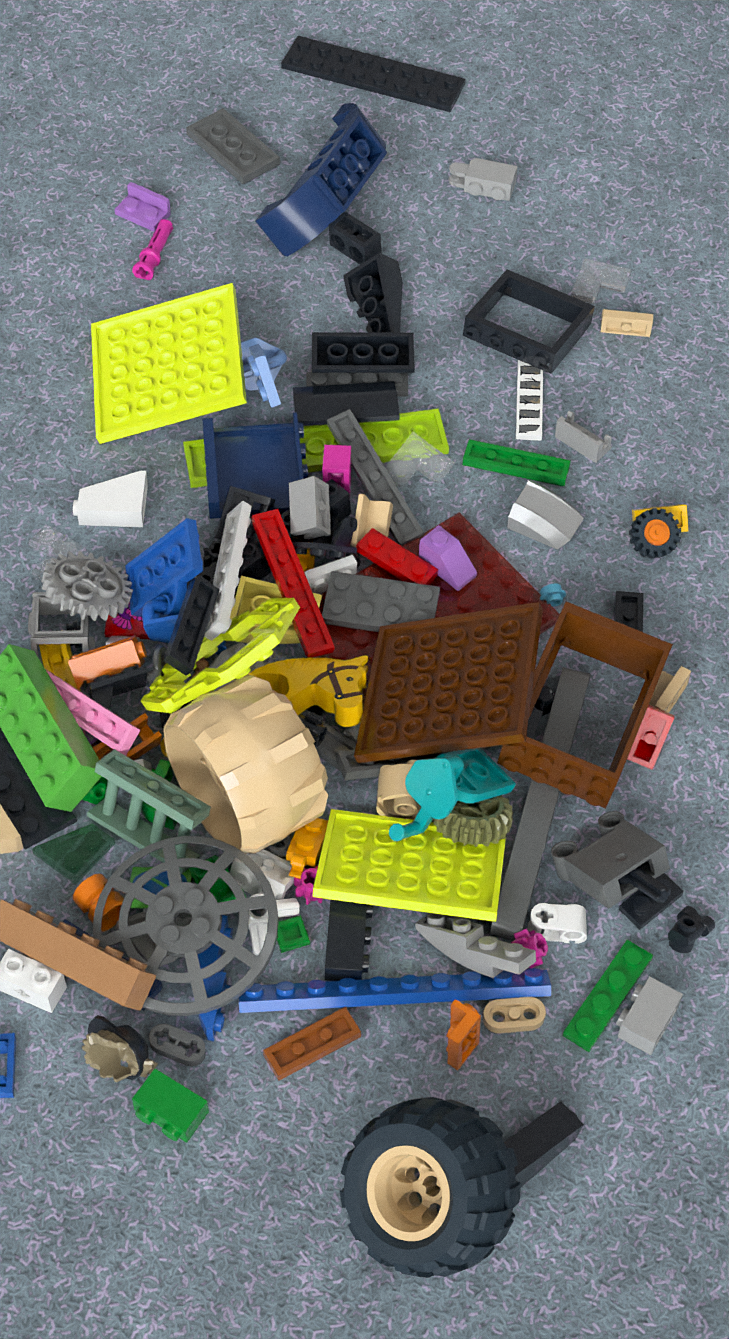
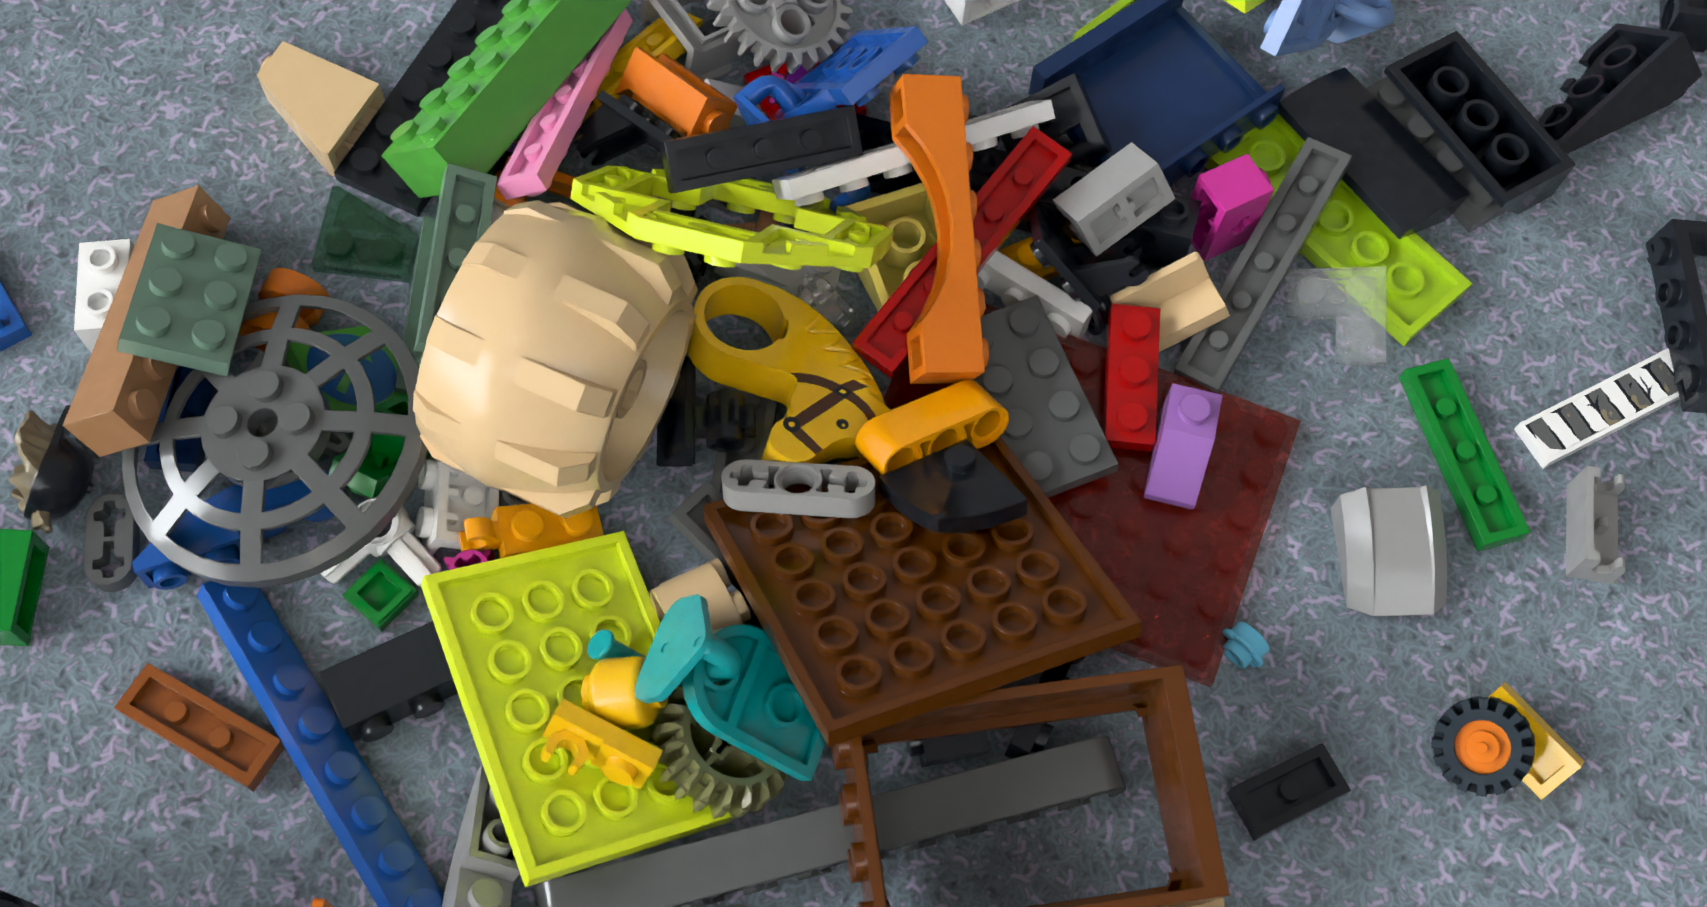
camera: 55 degrees right, 10 degrees up
(85, 920) = (190, 300): none -> sand green plate
(238, 551) = (929, 128): none -> orange arch
(361, 725) = (815, 502): none -> light grey beam
(378, 645) = (931, 425): none -> light orange beam
(419, 649) = (953, 491): none -> black plate
(428, 834) = (611, 694): none -> yellow head
(447, 855) = (615, 751): none -> yellow plate

